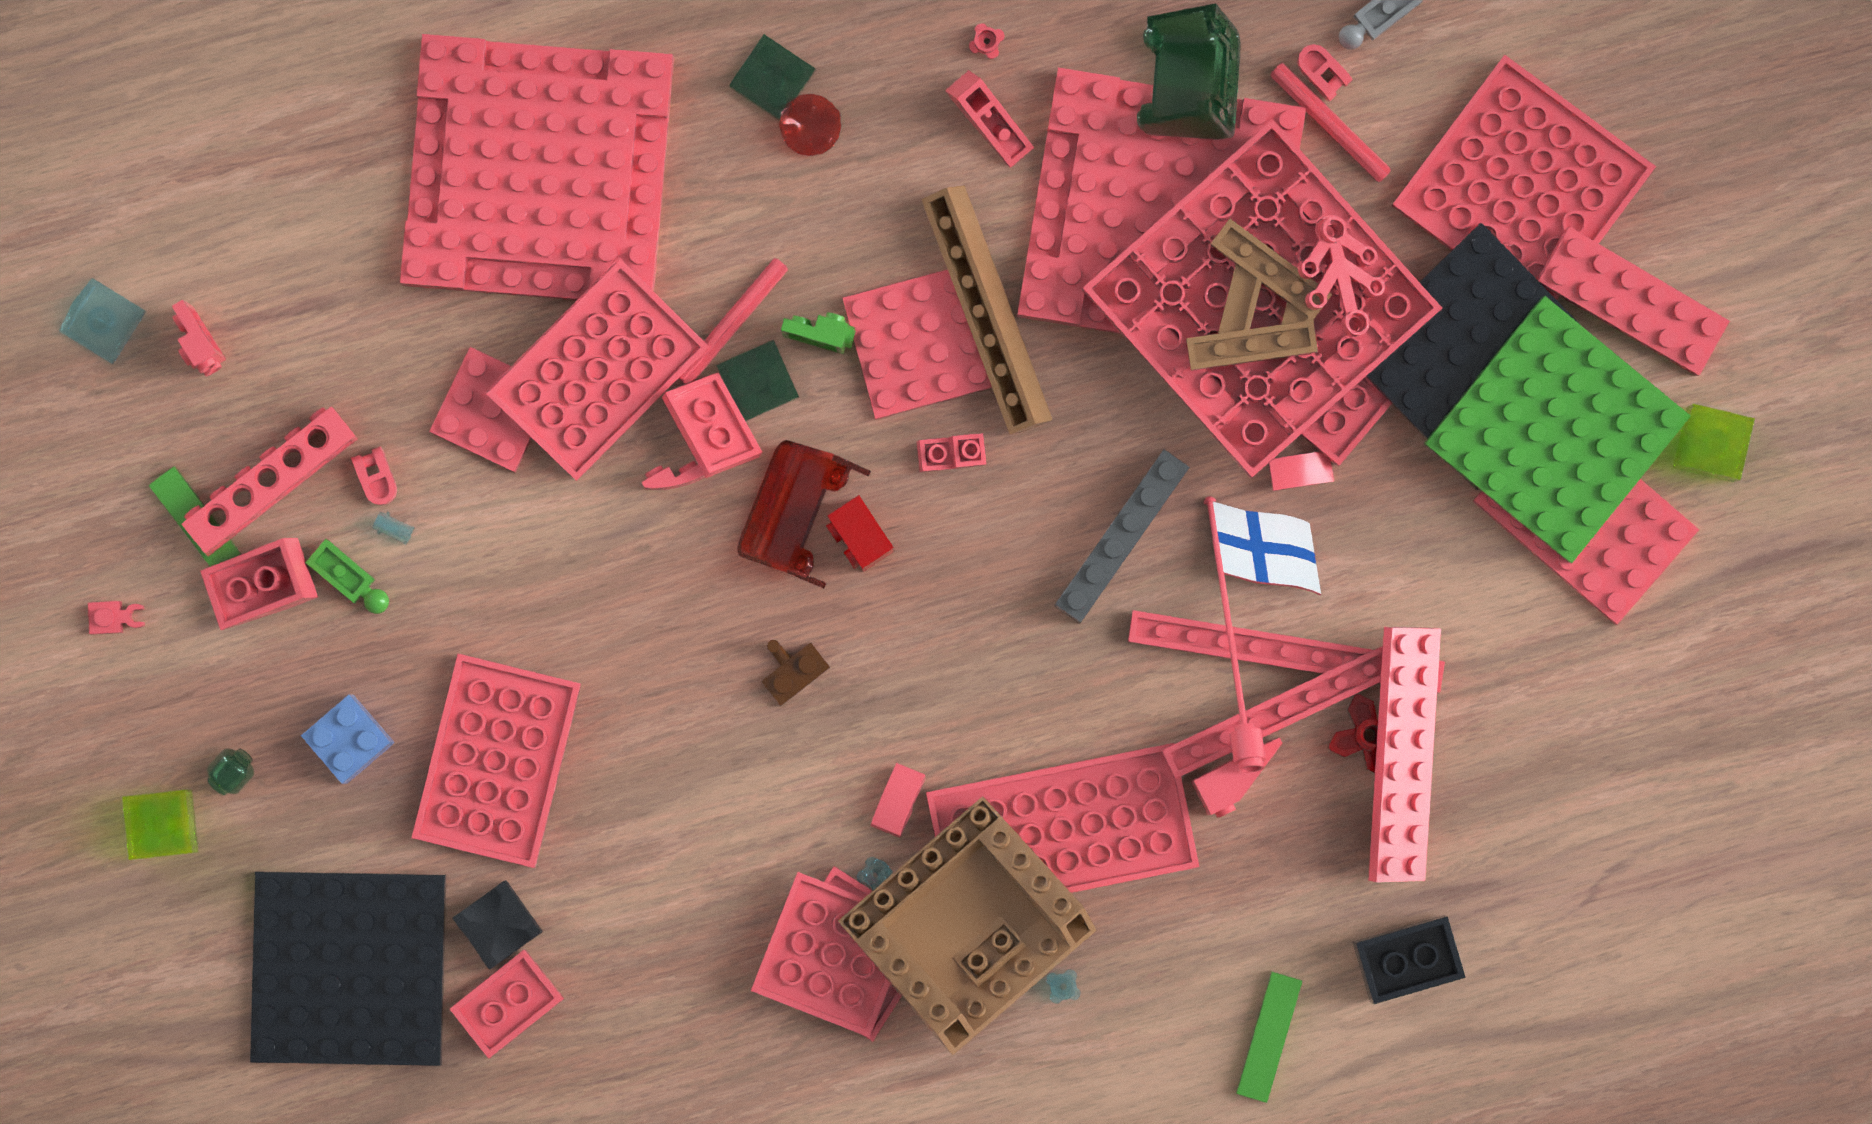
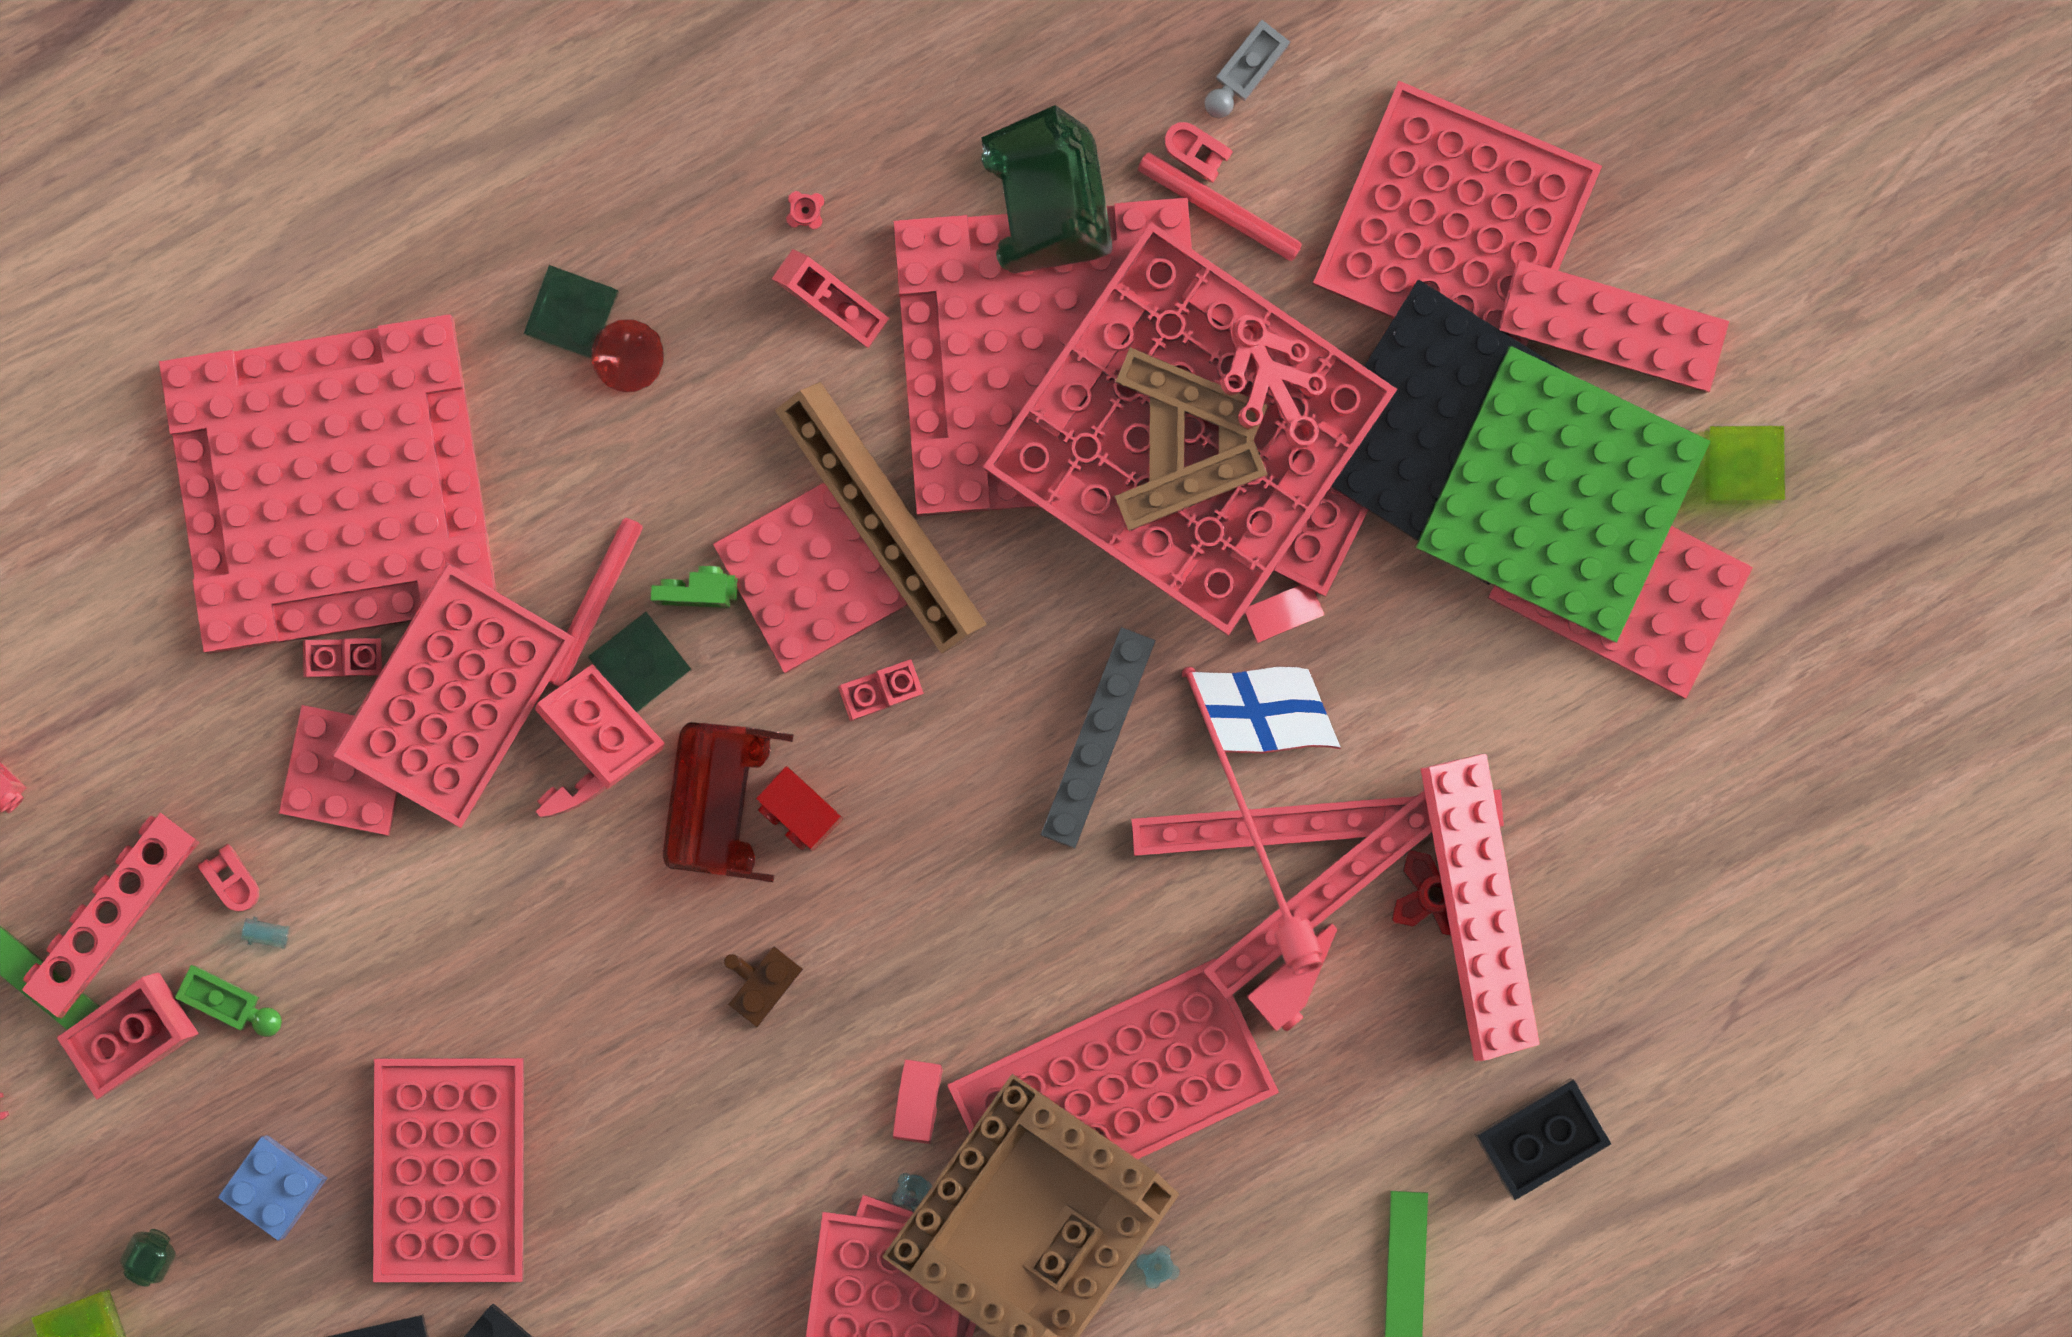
camera: 10 degrees left, 0 degrees up
(512, 316) = (342, 657): none -> coral slope

